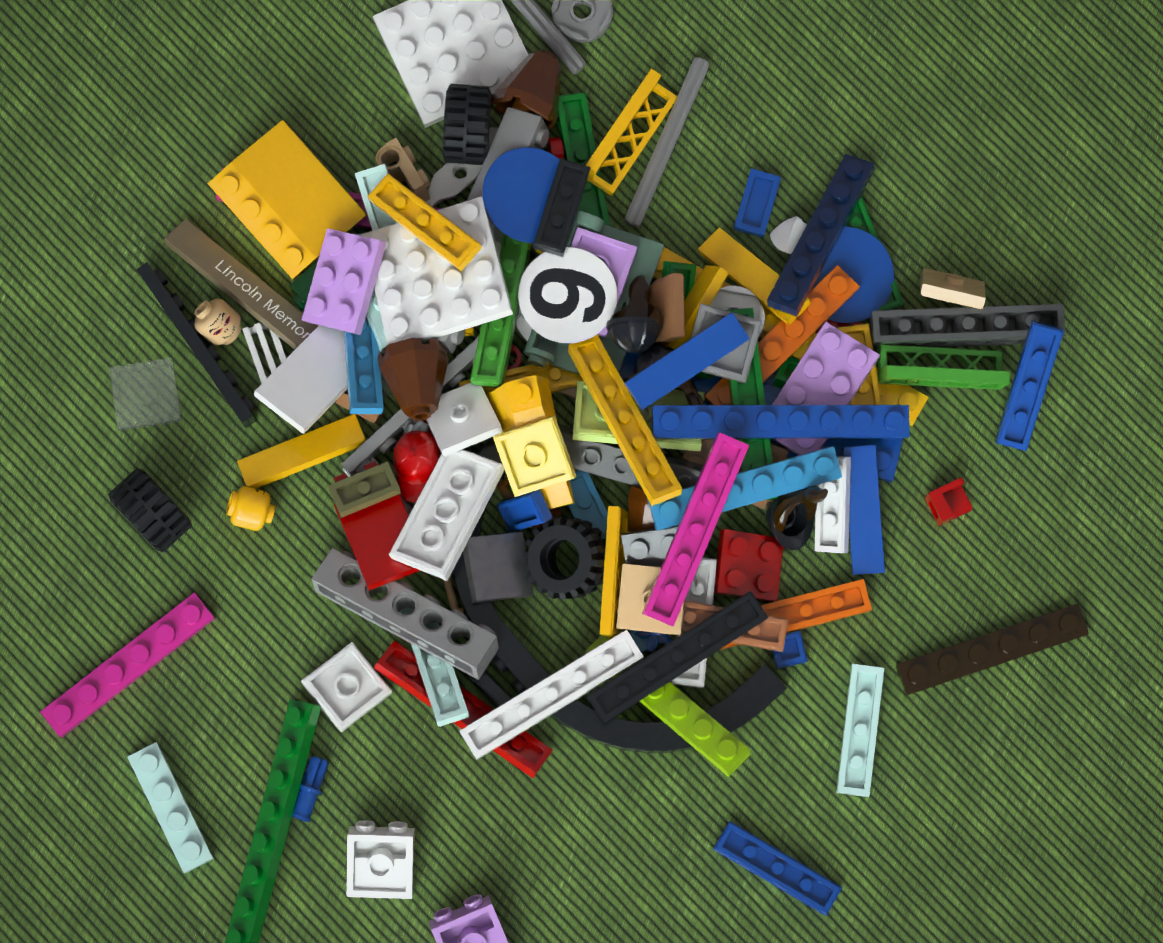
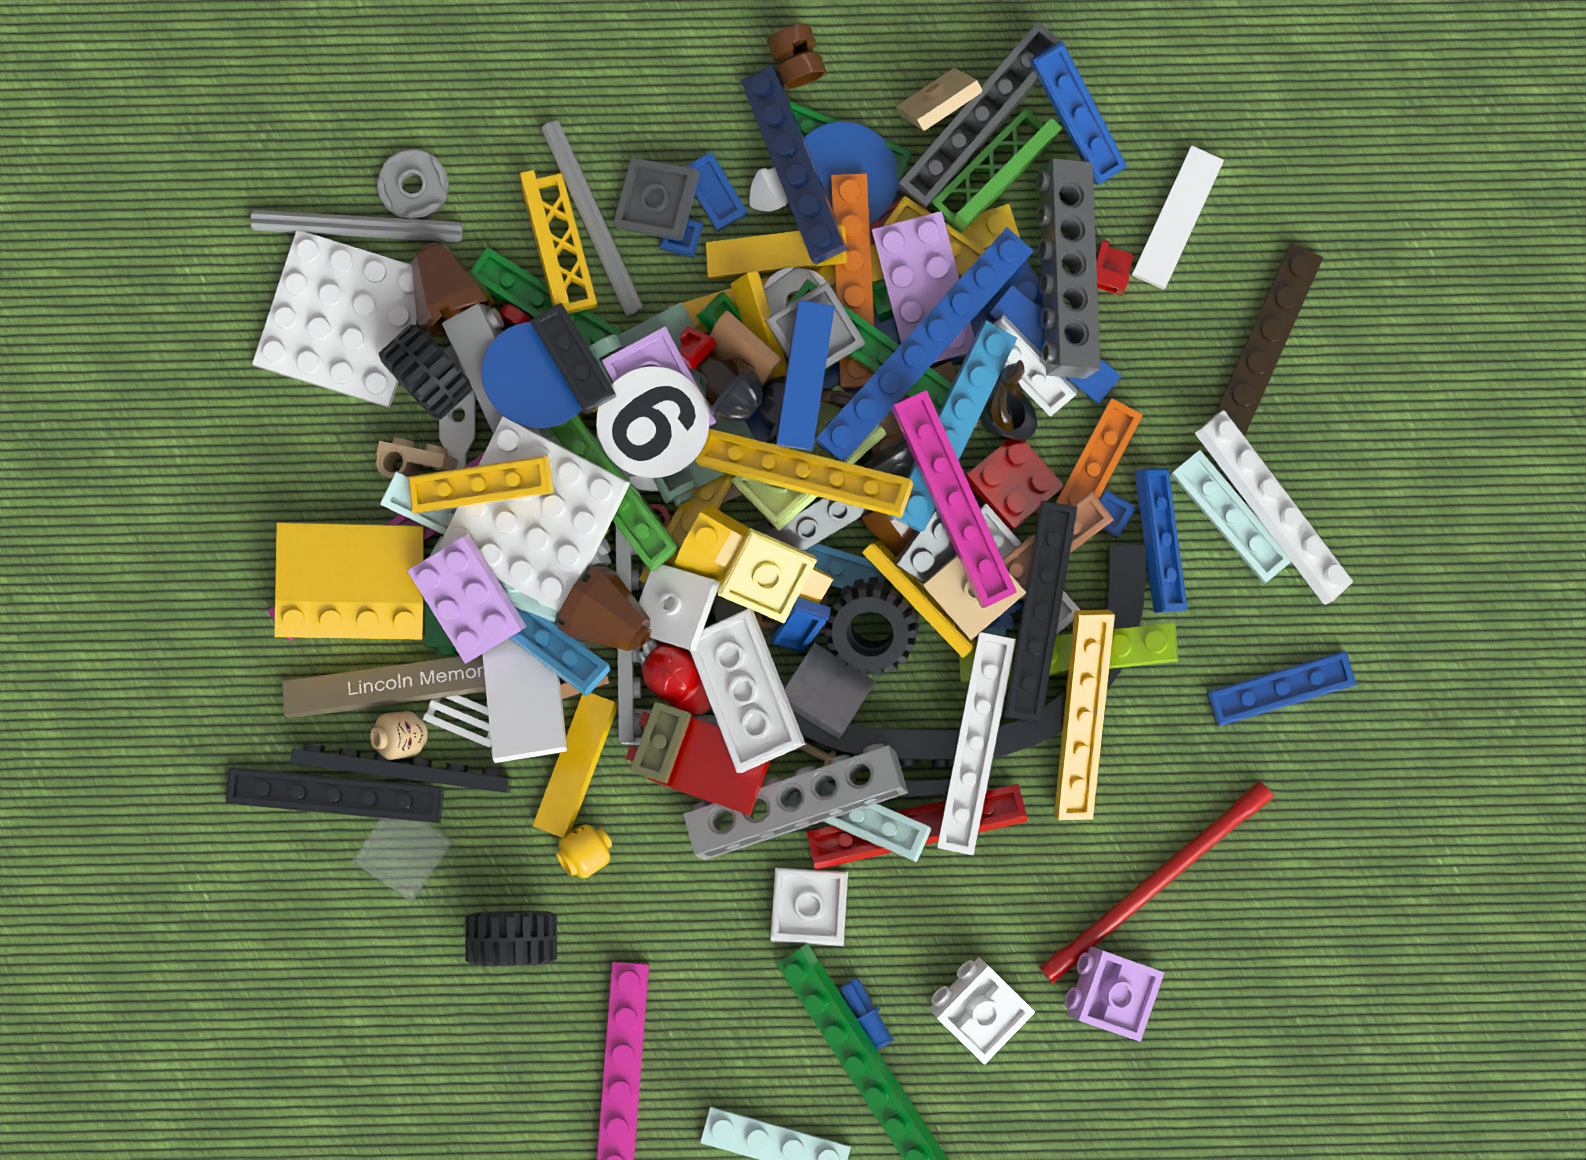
camera: 45 degrees left, 5 degrees up
(142, 318) = (335, 795): none -> black tile
(635, 747) = (1084, 714): none -> plate
(642, 277) = (695, 346): none -> red tile
(670, 914) = (1243, 808): none -> red piece
(709, 208) = (690, 241): none -> blue tile
(717, 170) = (656, 199): none -> dark grey plate
(800, 697) = (1161, 540): none -> blue tile
(891, 751) = (1274, 507): none -> white plate
(892, 177) = (802, 67): none -> reddish brown wheel
(981, 425) = (1078, 253): none -> dark grey brick
(1024, 515) = (1177, 217): none -> white tile

